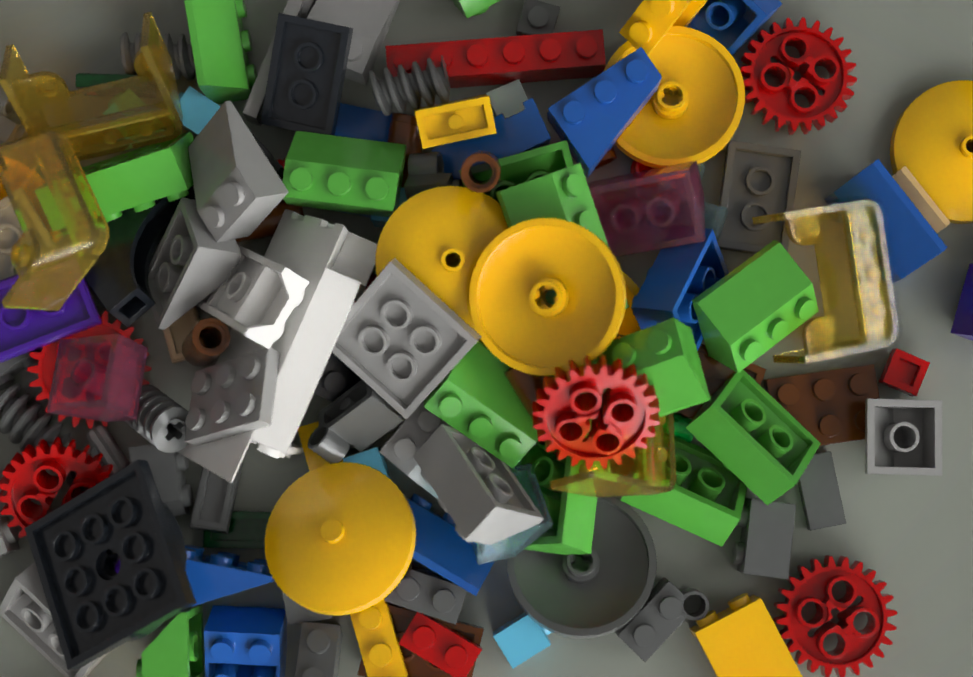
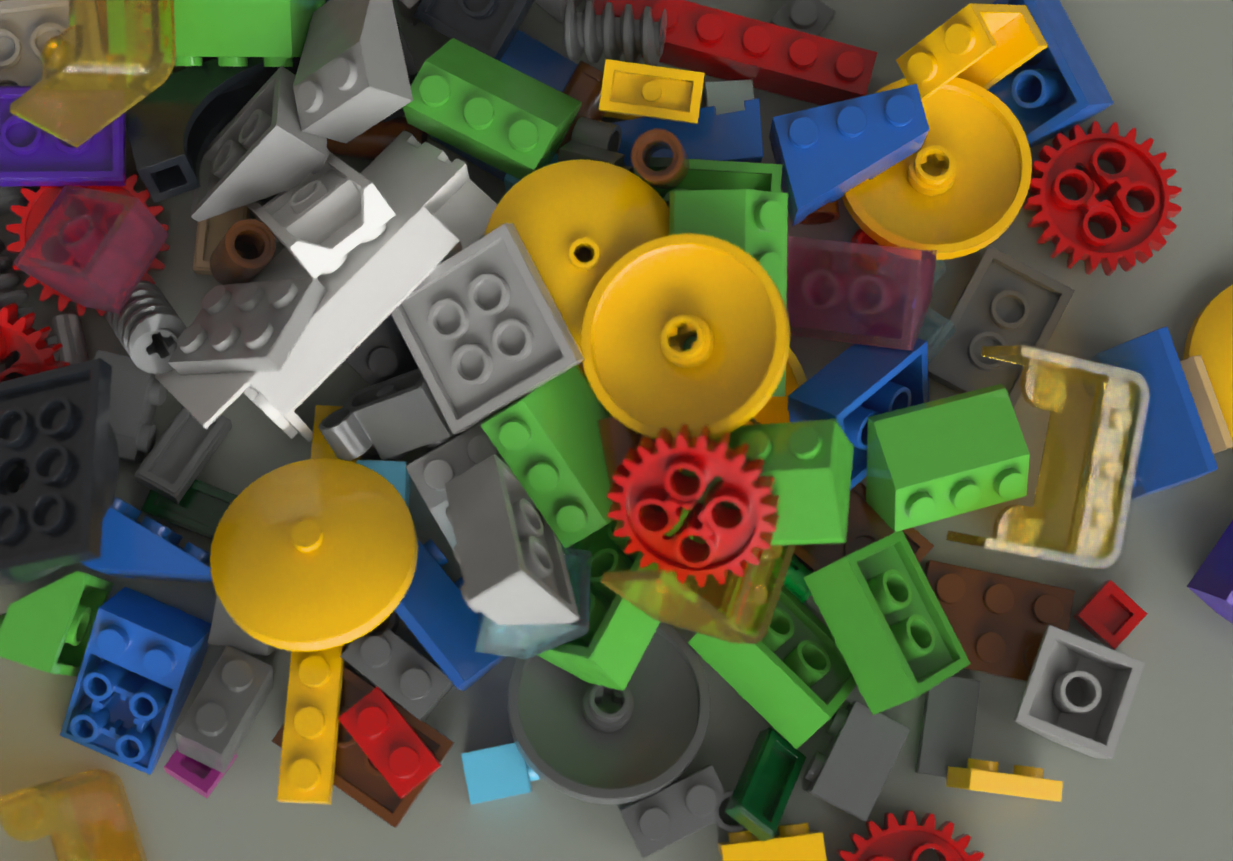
camera: 15 degrees right, 5 degrees down
(710, 579) = (766, 784): none -> dark green tile
(885, 512) = (1023, 782): none -> yellow plate

